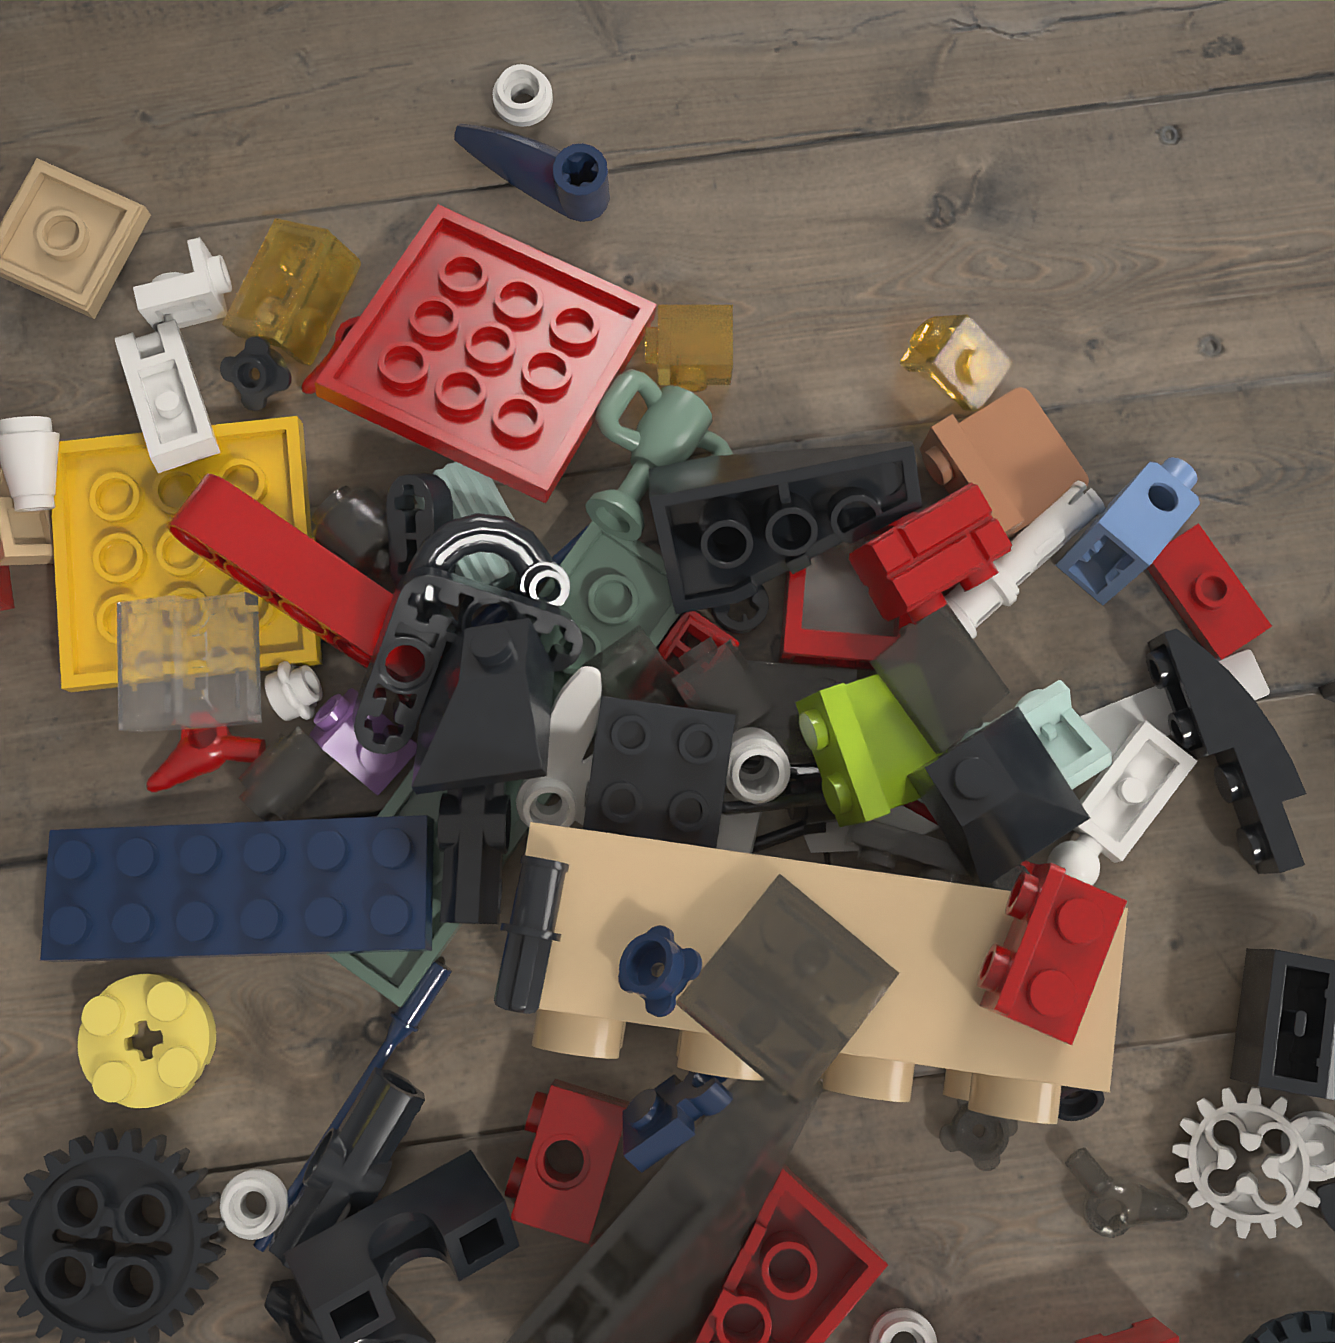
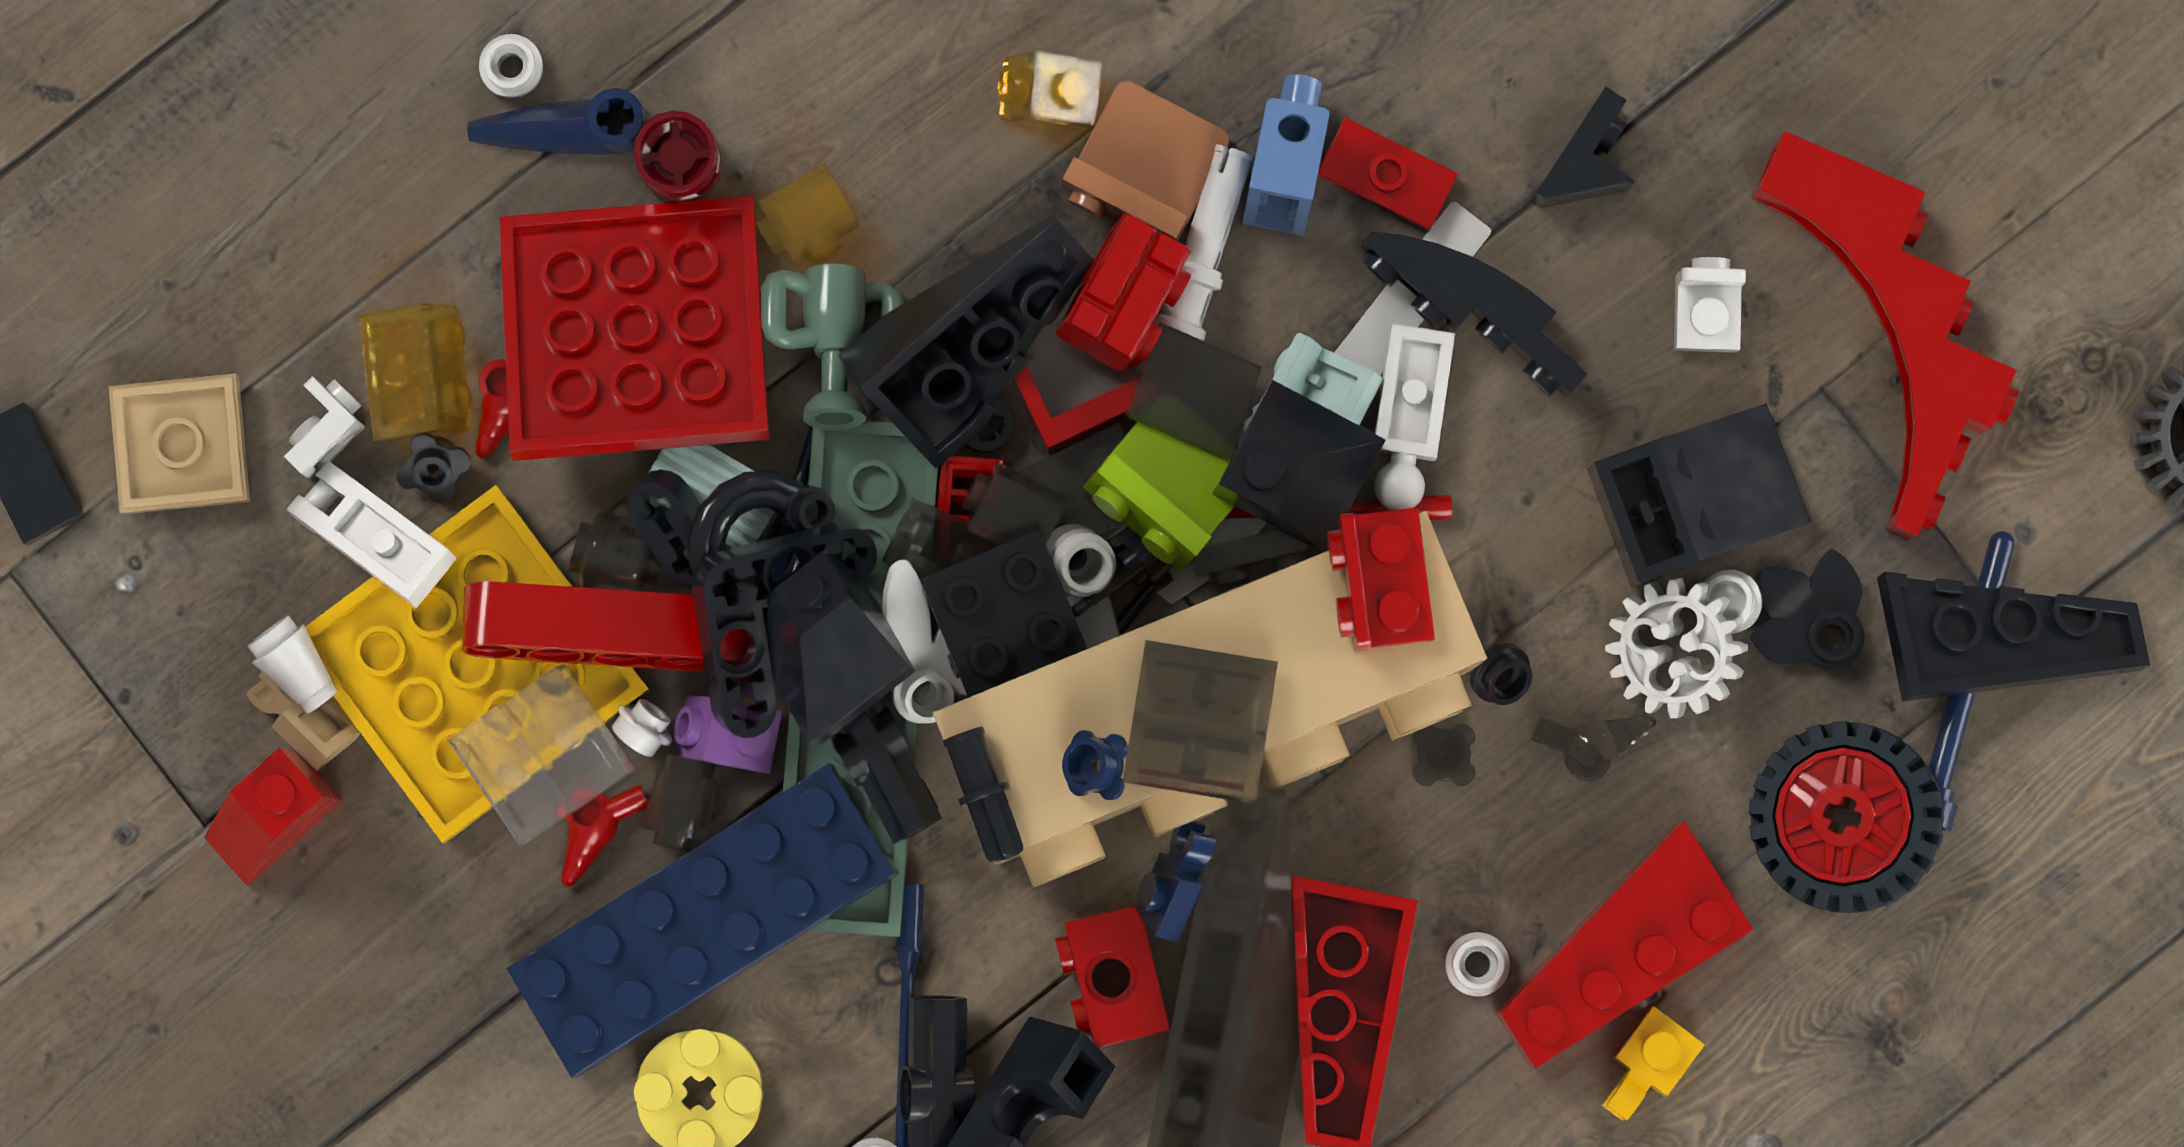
camera: 30 degrees left, 5 degrees up
(613, 233) = (678, 157): none -> dark red wheel

